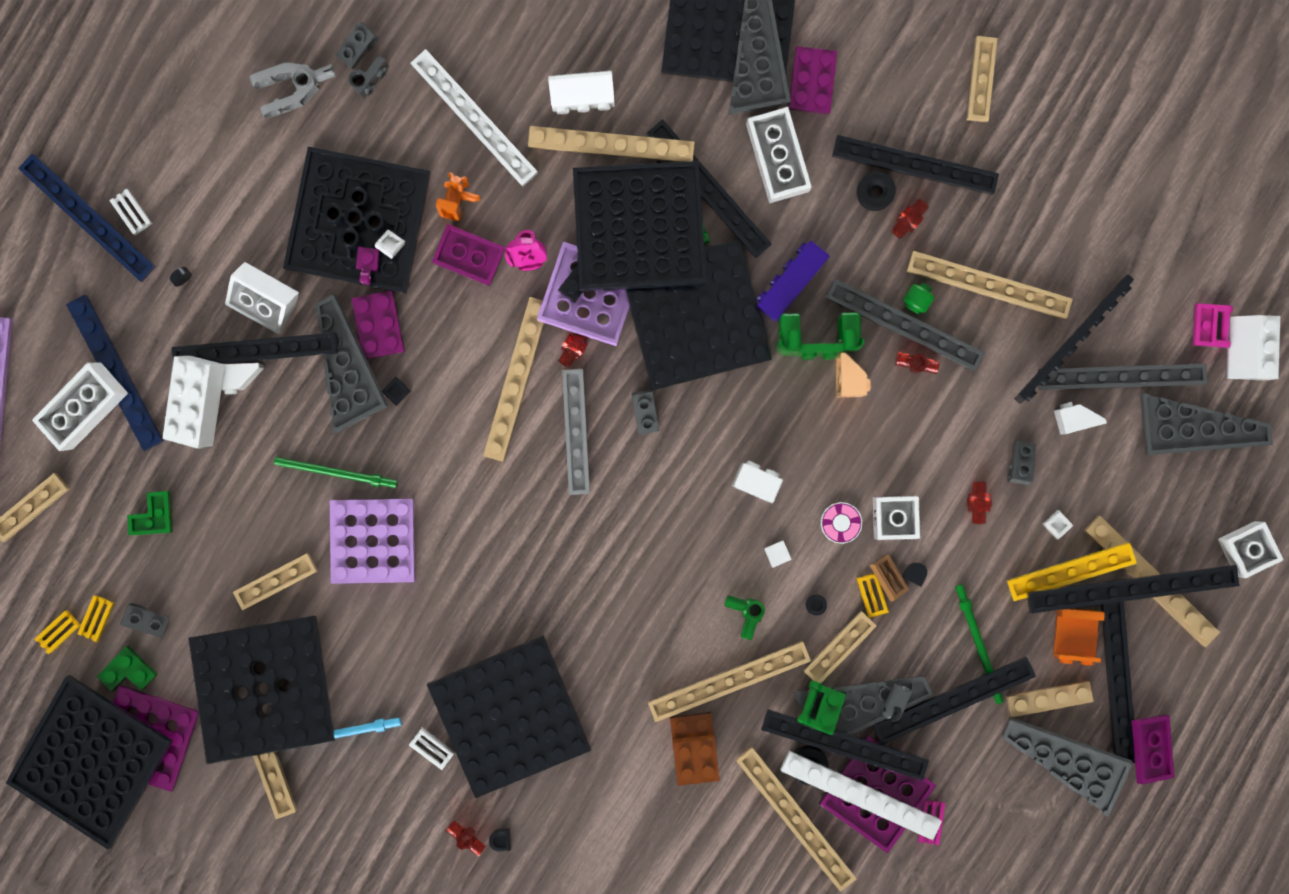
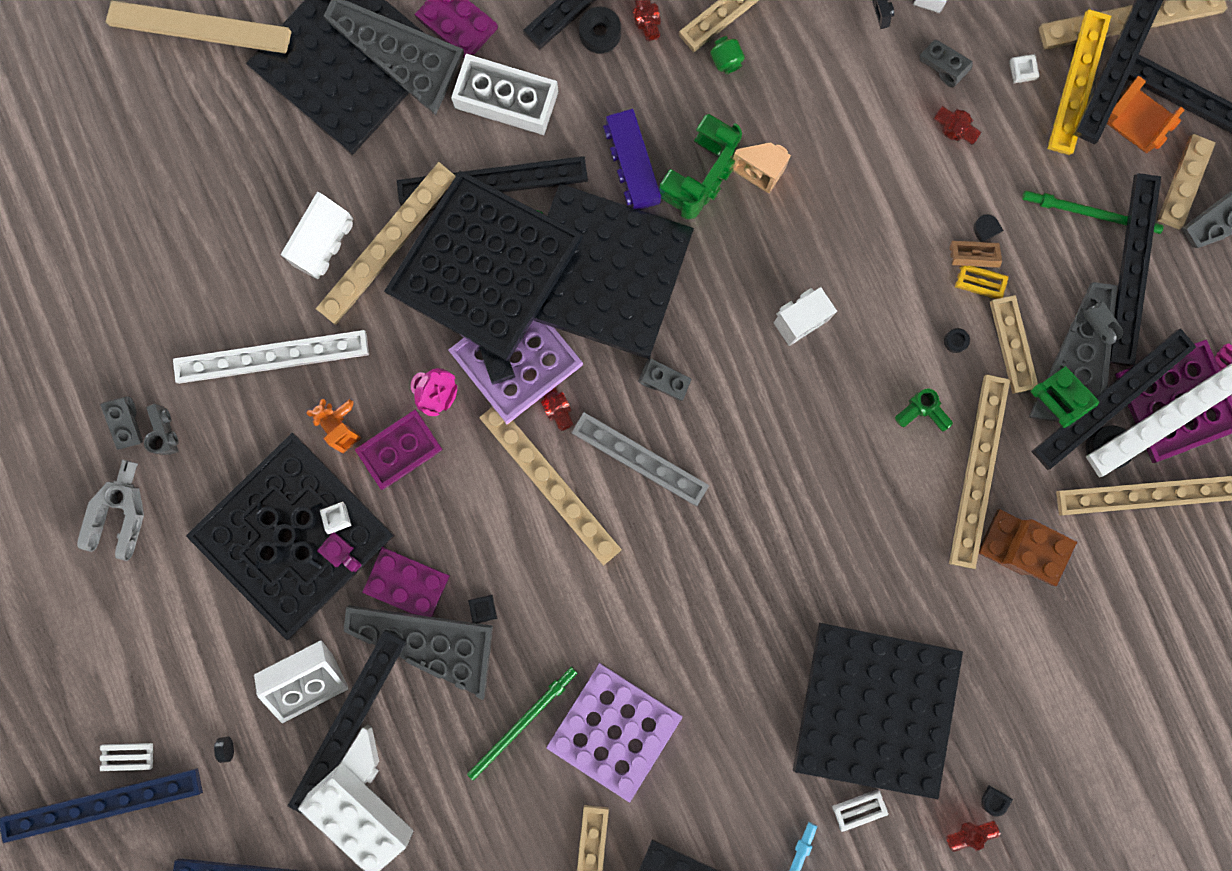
camera: 60 degrees left, 5 degrees down
(777, 554) = (884, 344): white tile -> none
(841, 522) = (893, 265): tile -> none
(896, 517) = (923, 209): white brick -> none
(905, 325) = (744, 84): dark grey plate -> none
(927, 365) = (781, 103): clear red axle -> none

